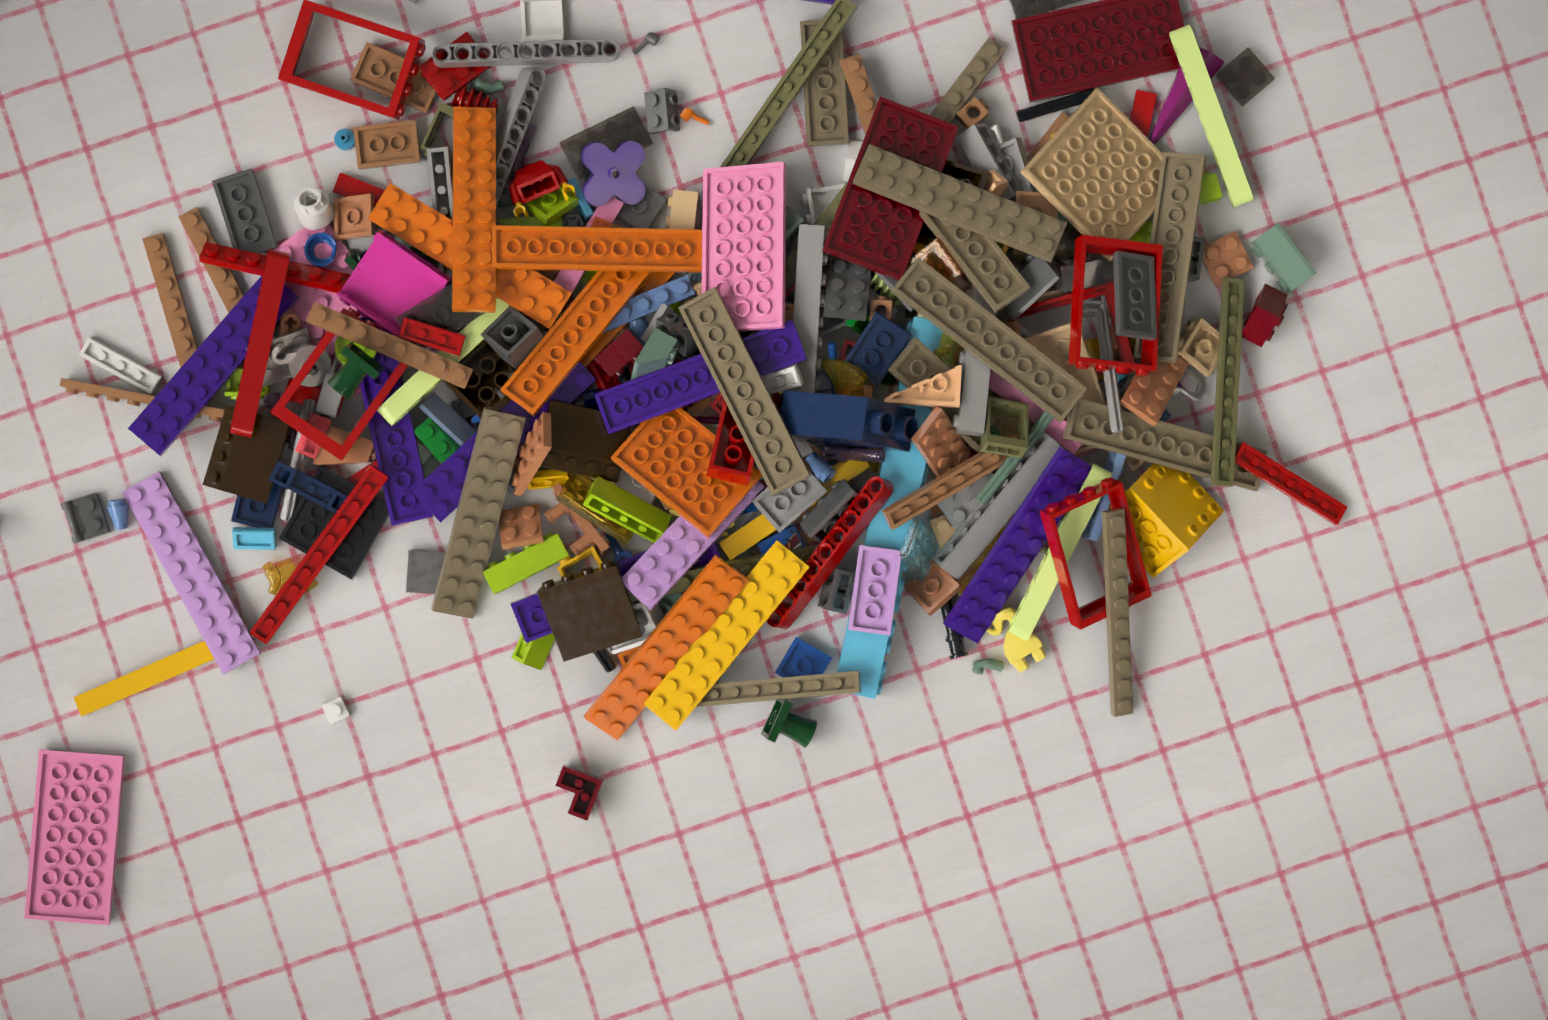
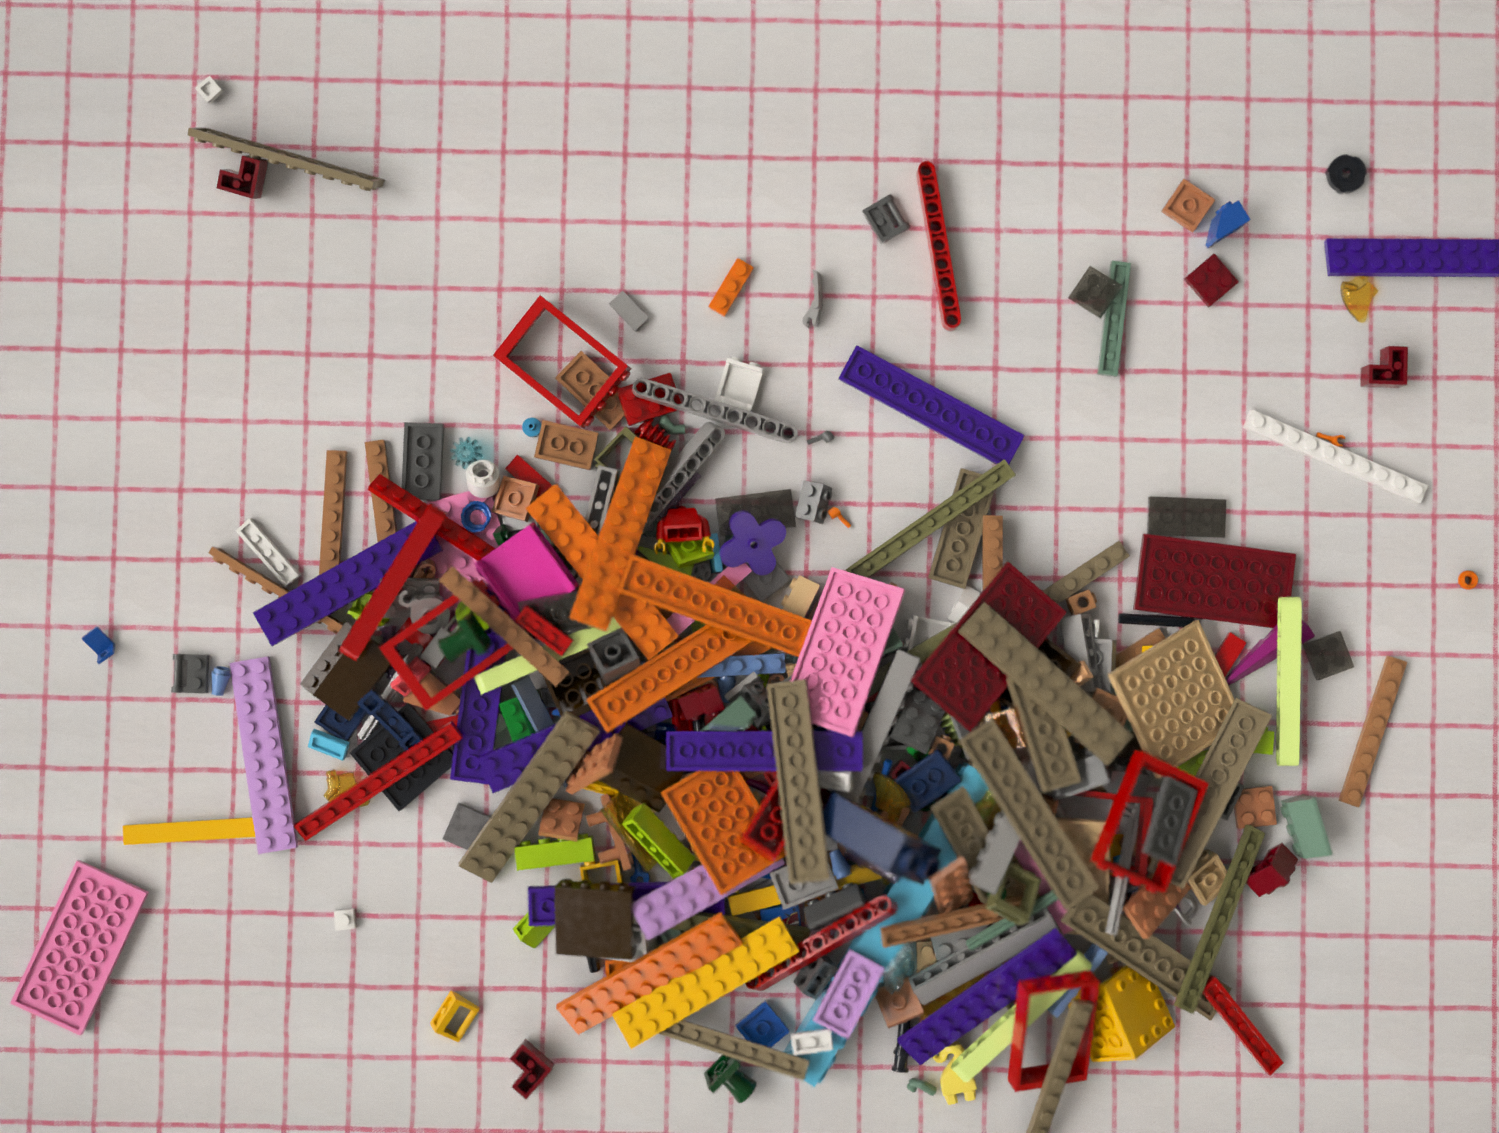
camera: 10 degrees right, 0 degrees up
(280, 195) = (471, 446): none -> clear light blue gear
(474, 767) = (446, 1013): none -> yellow tile
(854, 652) = (811, 1041): none -> white plate
(939, 391) = (968, 843): light nougat wing -> none
(1318, 138) = (1372, 731): none -> medium nougat plate

